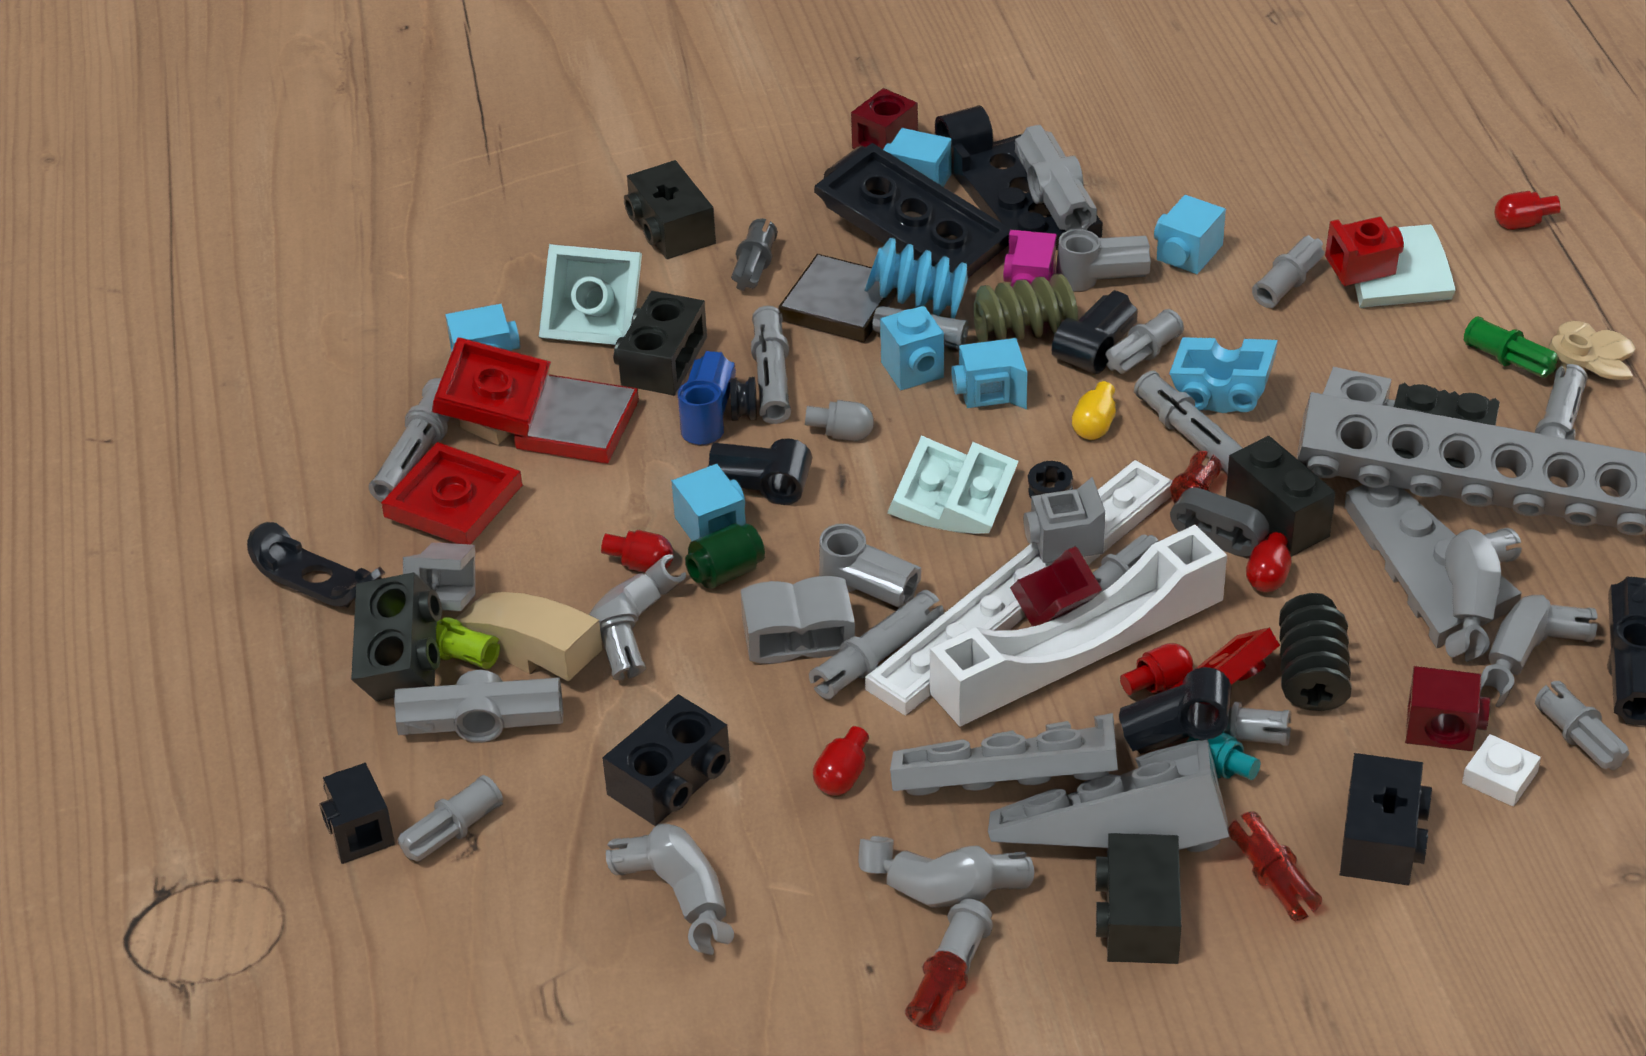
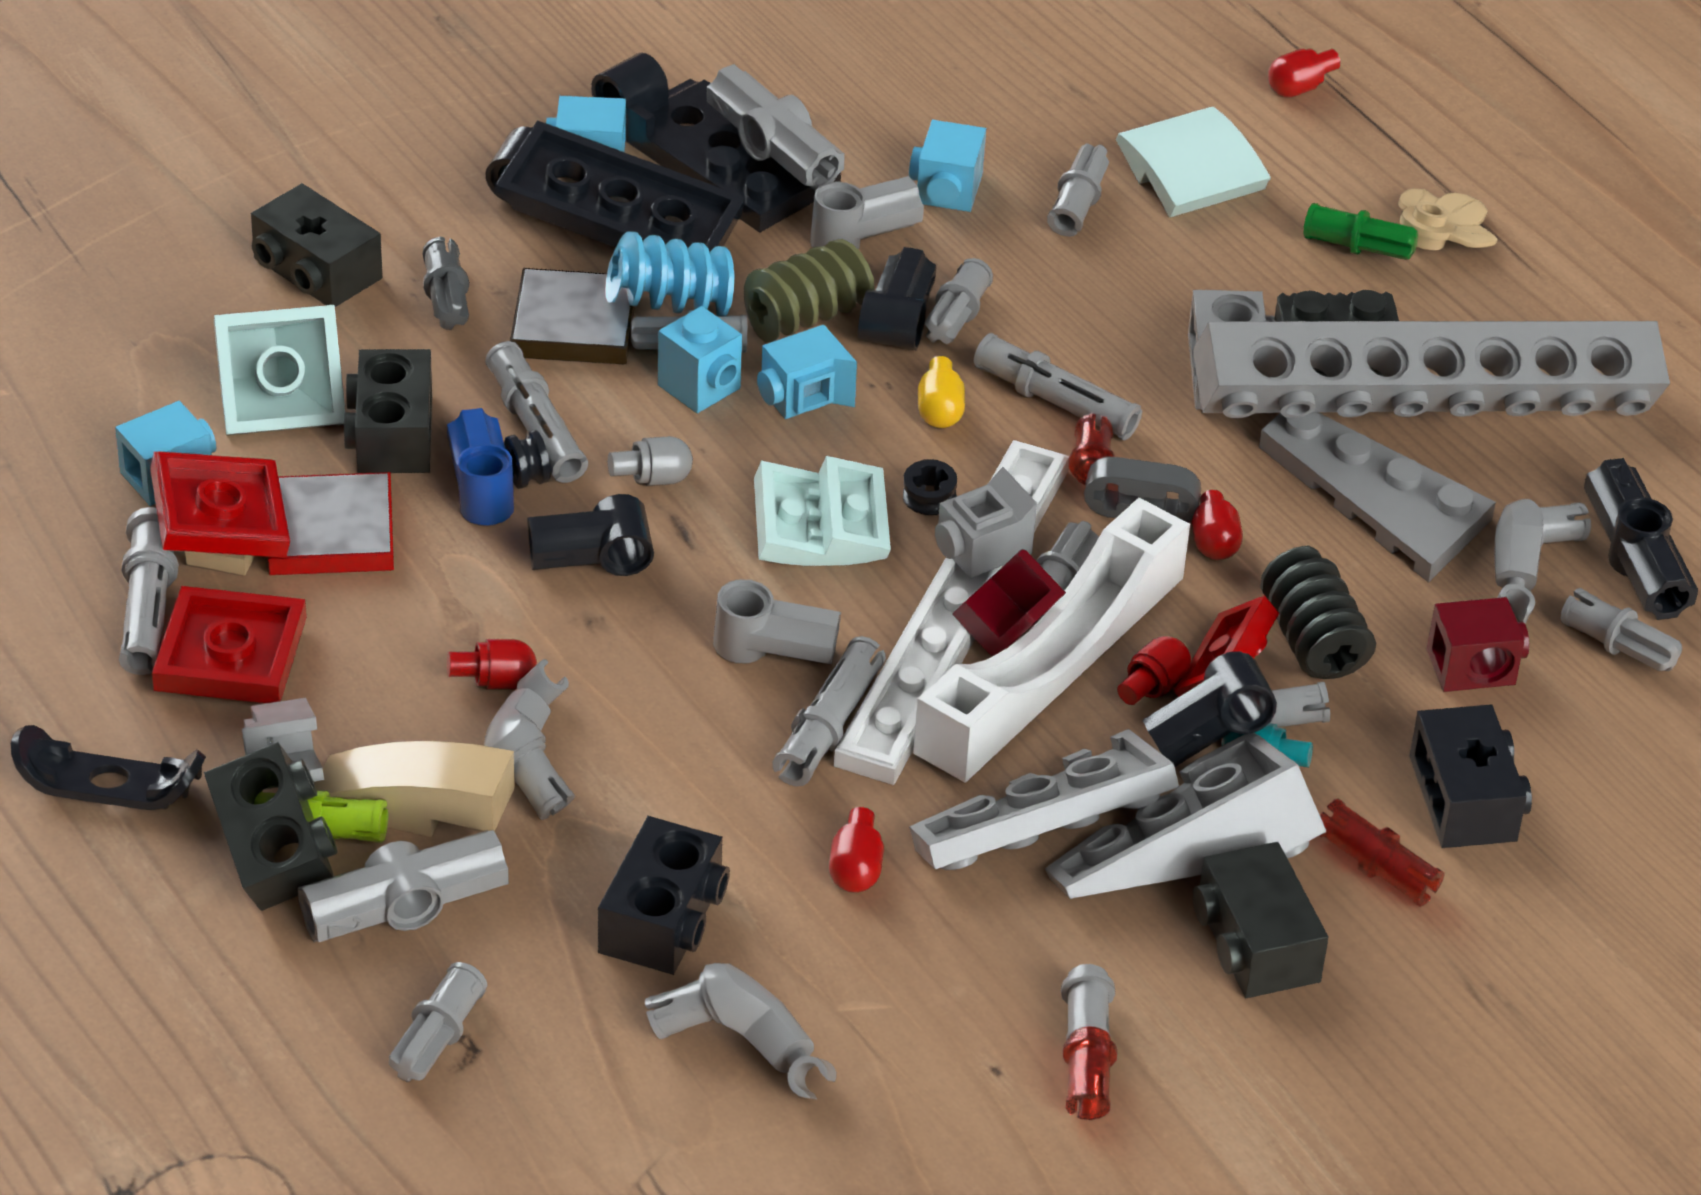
camera: 25 degrees left, 0 degrees up
(356, 813) = (324, 1040): black brick -> none
(707, 502) = (555, 596): medium azure brick -> none
(724, 555) = (602, 647): dark green brick -> none
(796, 619) = (726, 702): light grey brick -> none
(882, 118) = (524, 92): dark red brick -> none
(949, 878) = (1043, 953): light grey arm -> none
(1029, 256) = (782, 226): dark pink brick -> none
(1222, 377) = (1074, 324): medium azure cylinder -> none
(1283, 491) = (1199, 436): pearl dark grey brick -> none
(1363, 250) = (1171, 142): red brick -> none
(1475, 573) = (1453, 488): light grey arm -> none
(1501, 770) = (1558, 697): white plate -> none
(1563, 403) = (1443, 283): light grey pin -> none

